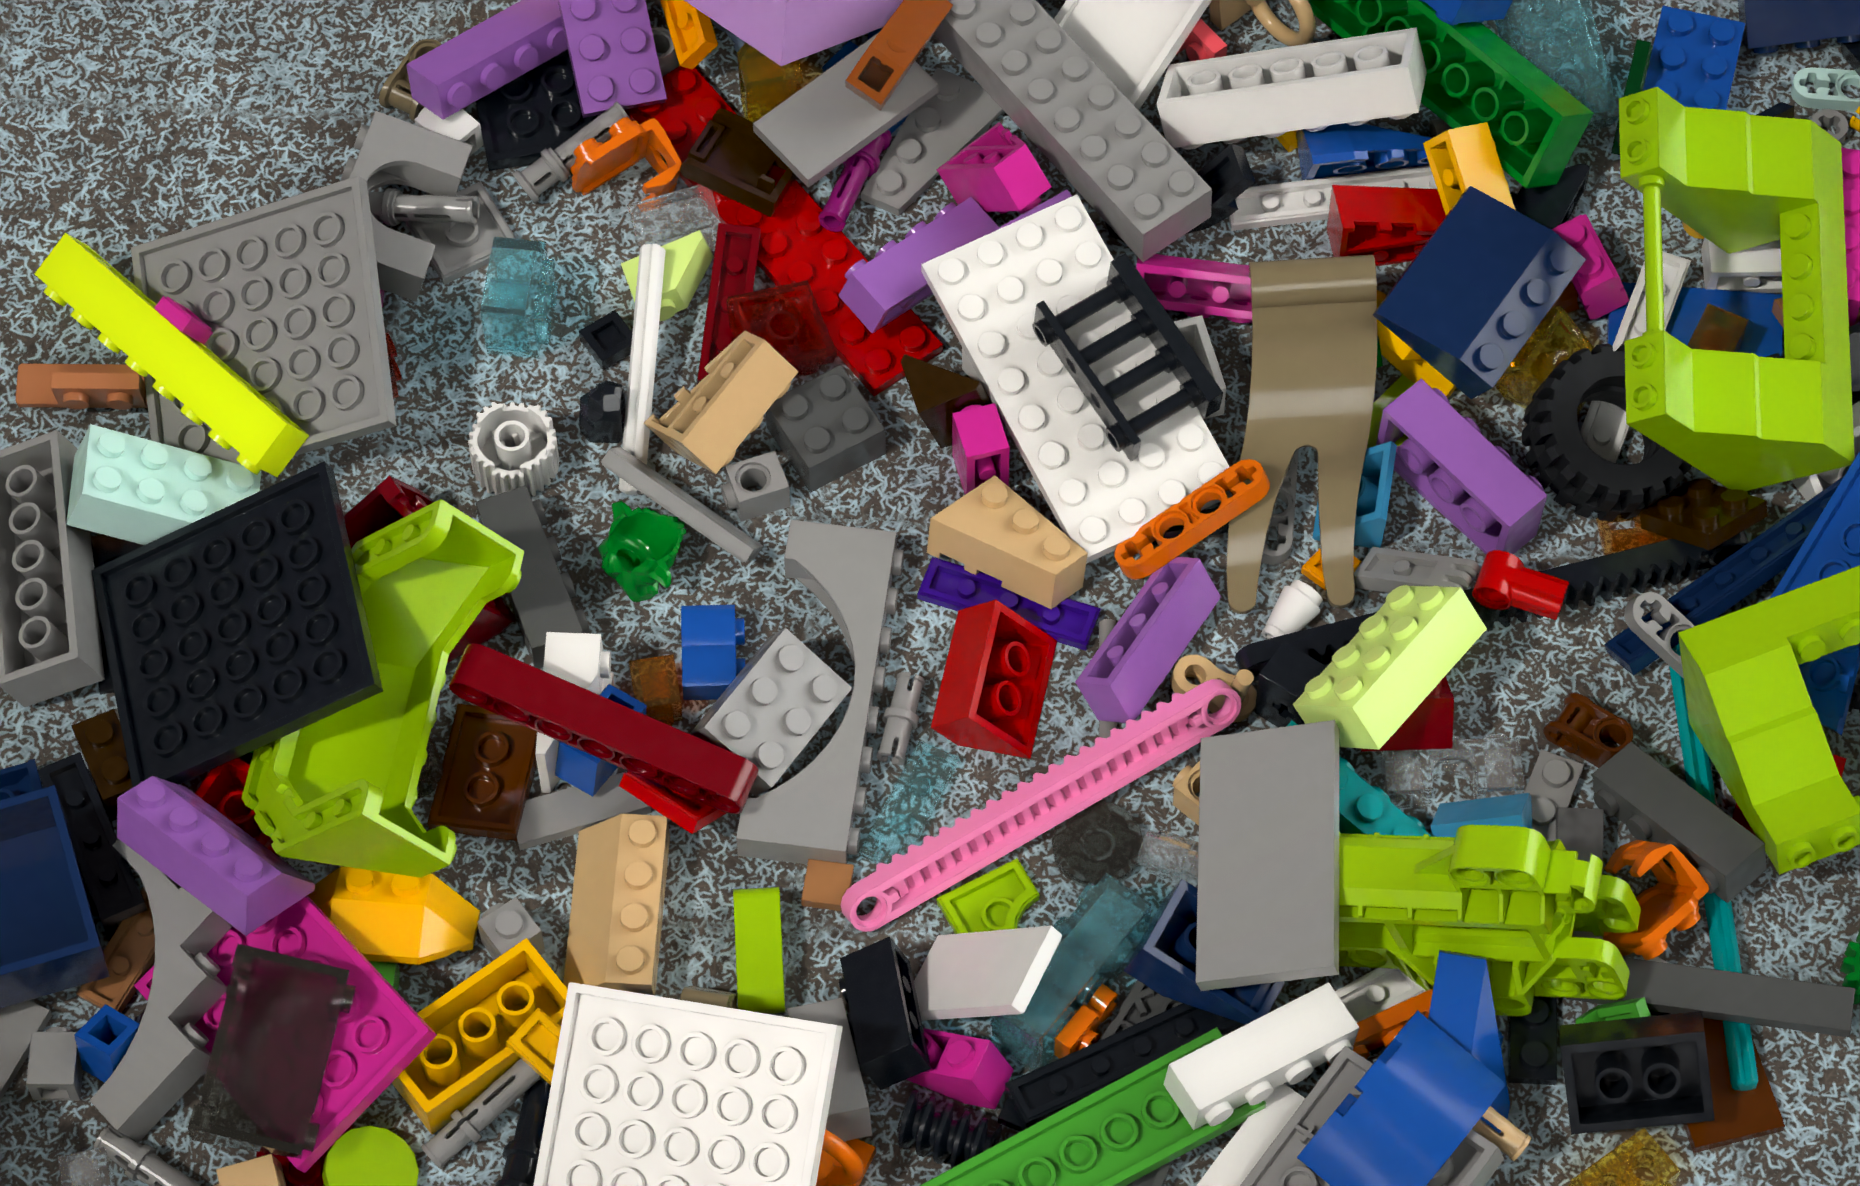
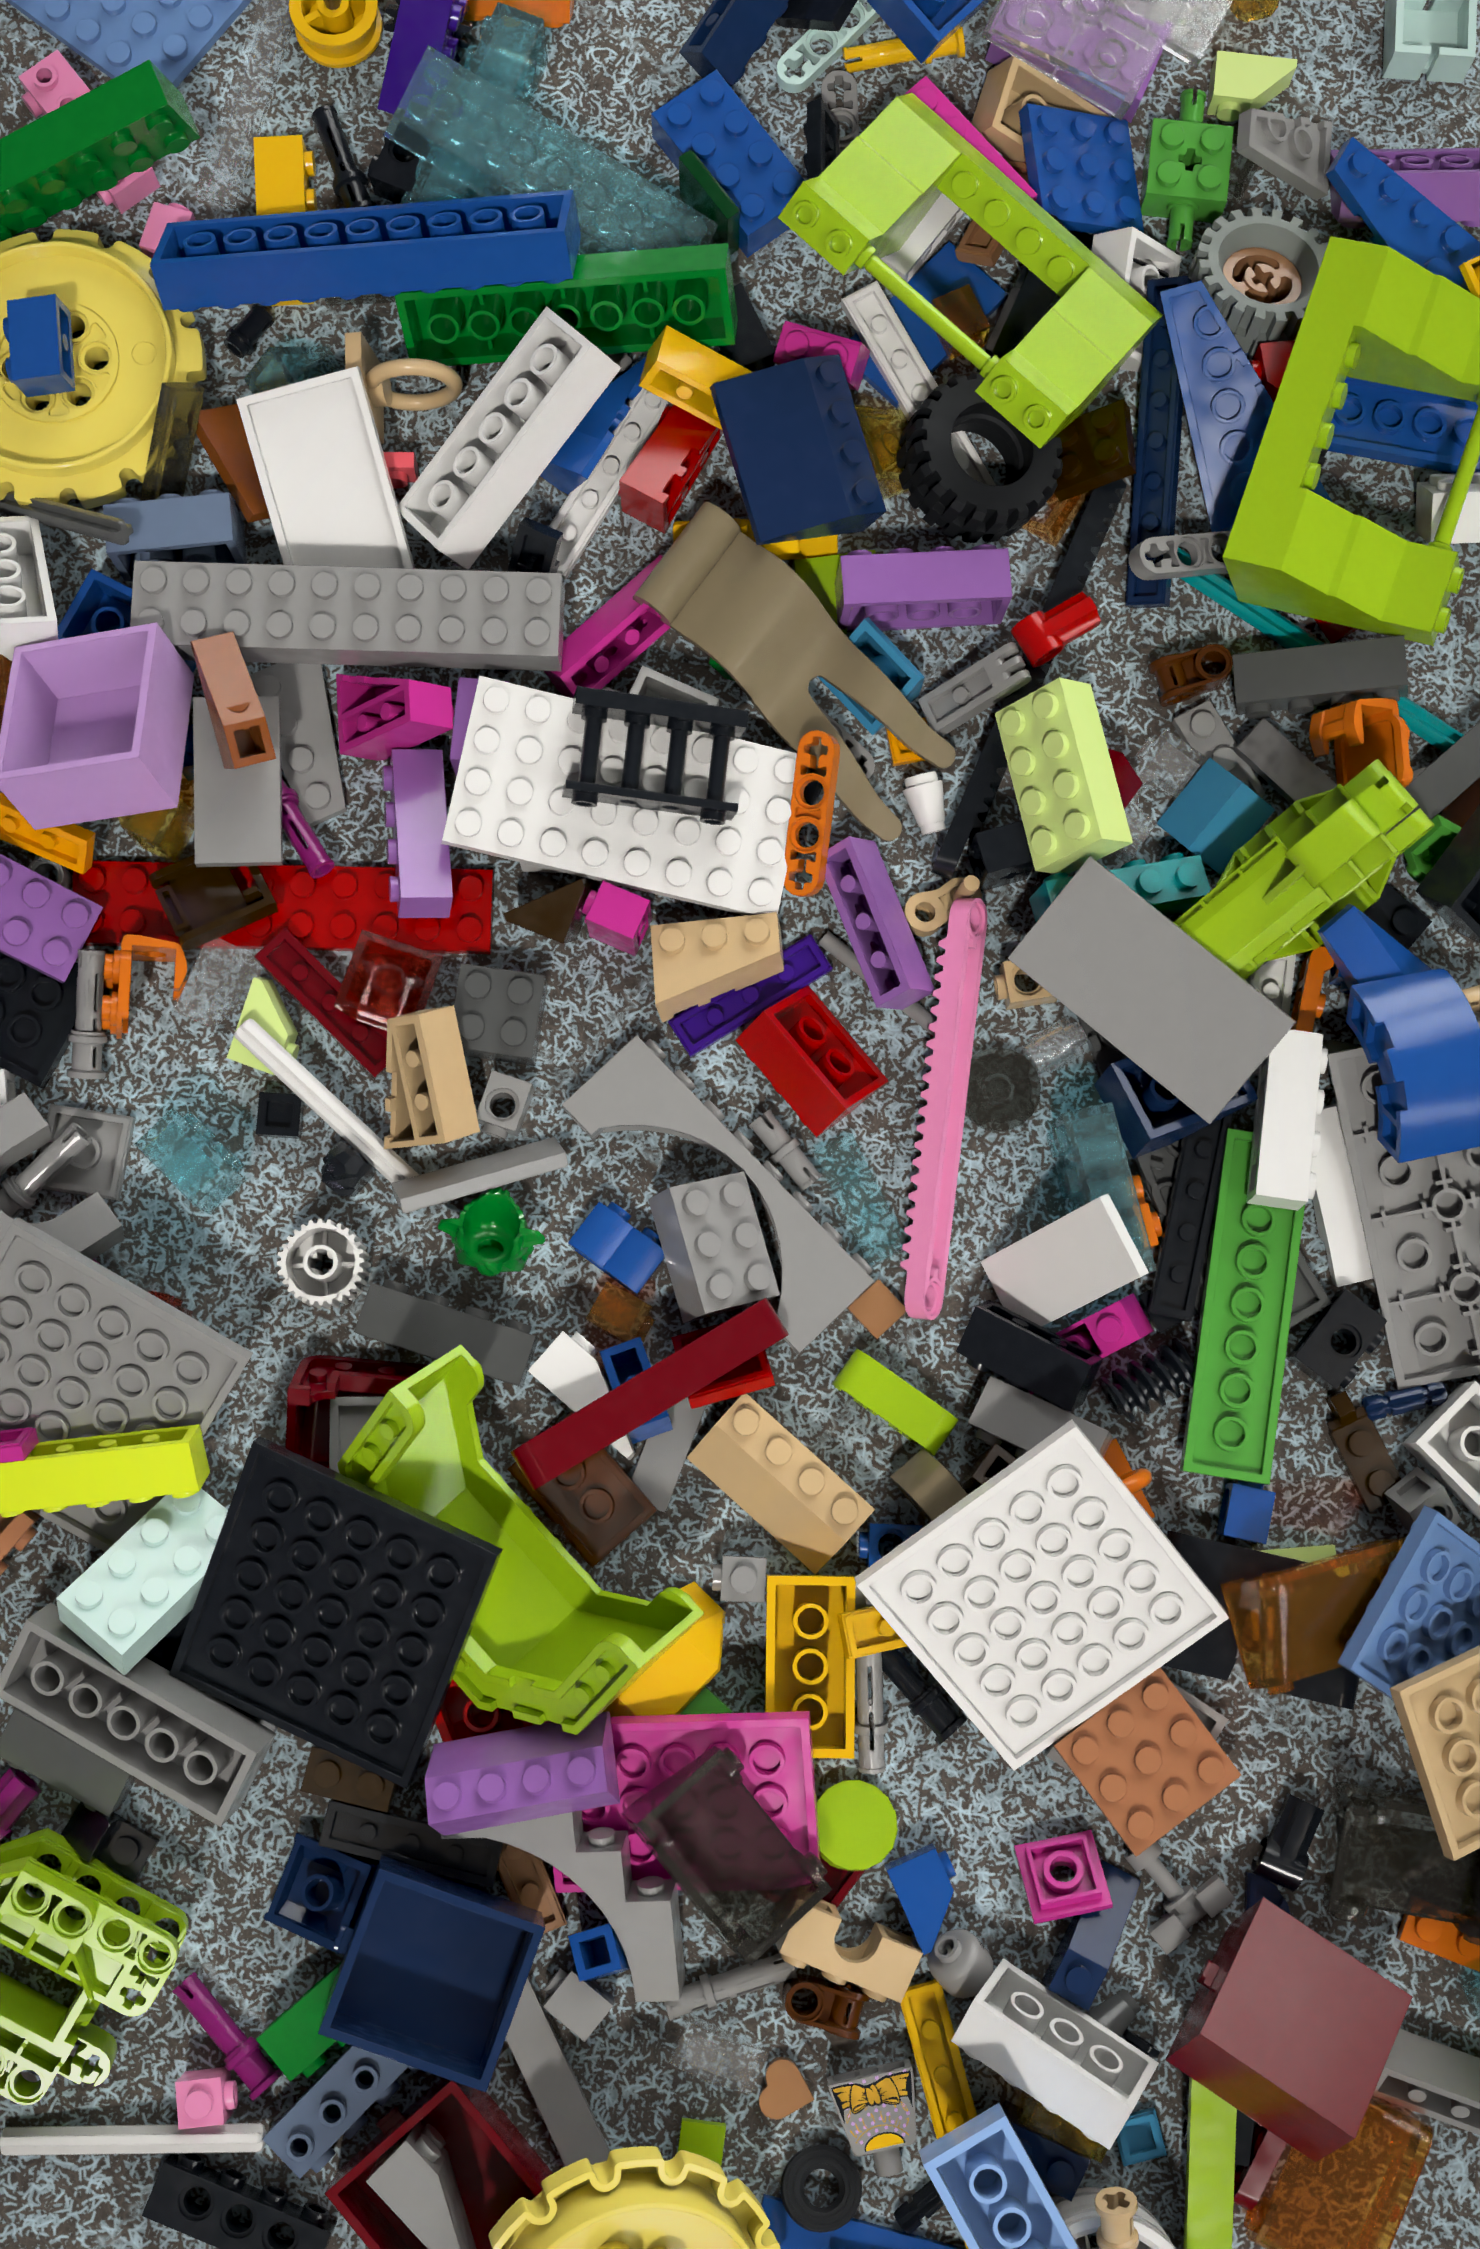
camera: 55 degrees left, 20 degrees up
(990, 901) = (988, 1209): lime tile -> none

